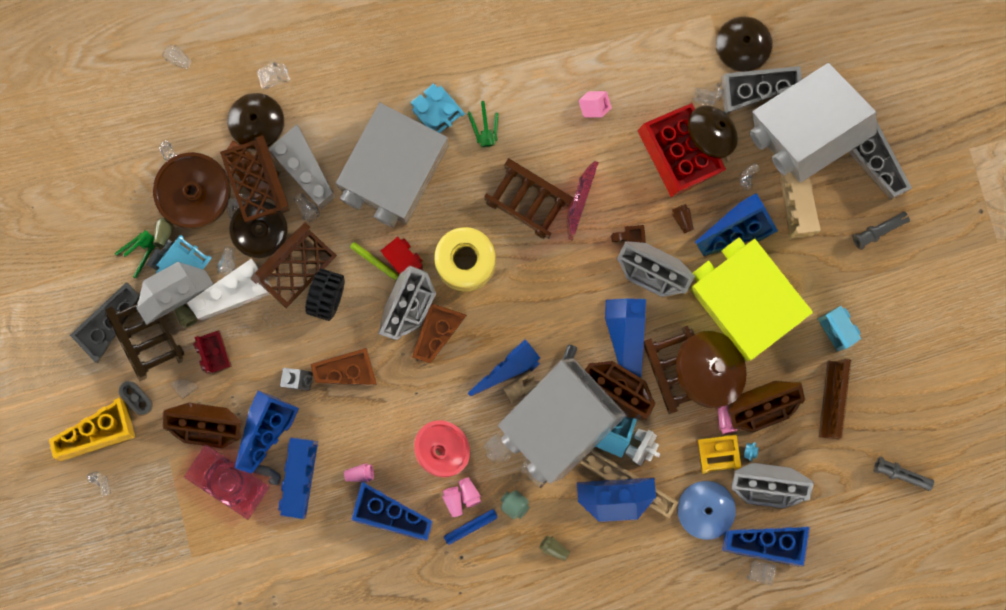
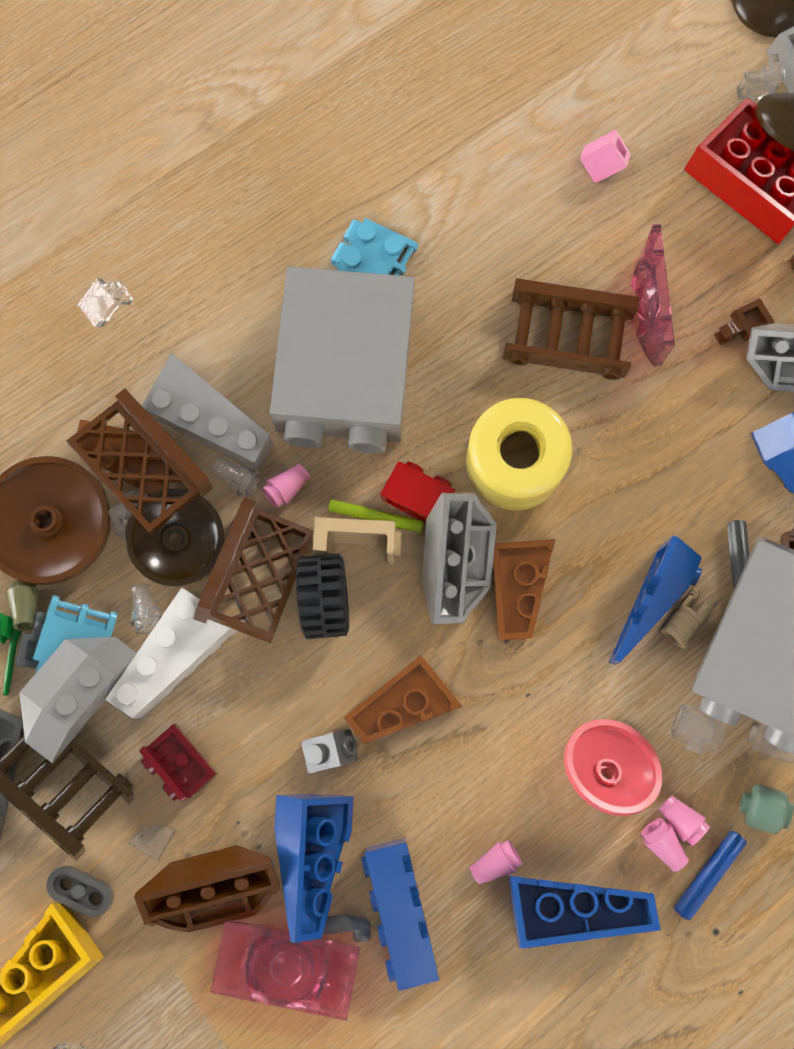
camera: 20 degrees left, 5 degrees down
(185, 316) = (111, 723): olive cone -> none
(268, 121) = (123, 368): dark brown dish -> none
(331, 223) = (285, 485): none -> bright pink cone
(341, 260) = (356, 532): none -> tan panel
(486, 138) = (468, 263): green plant -> none

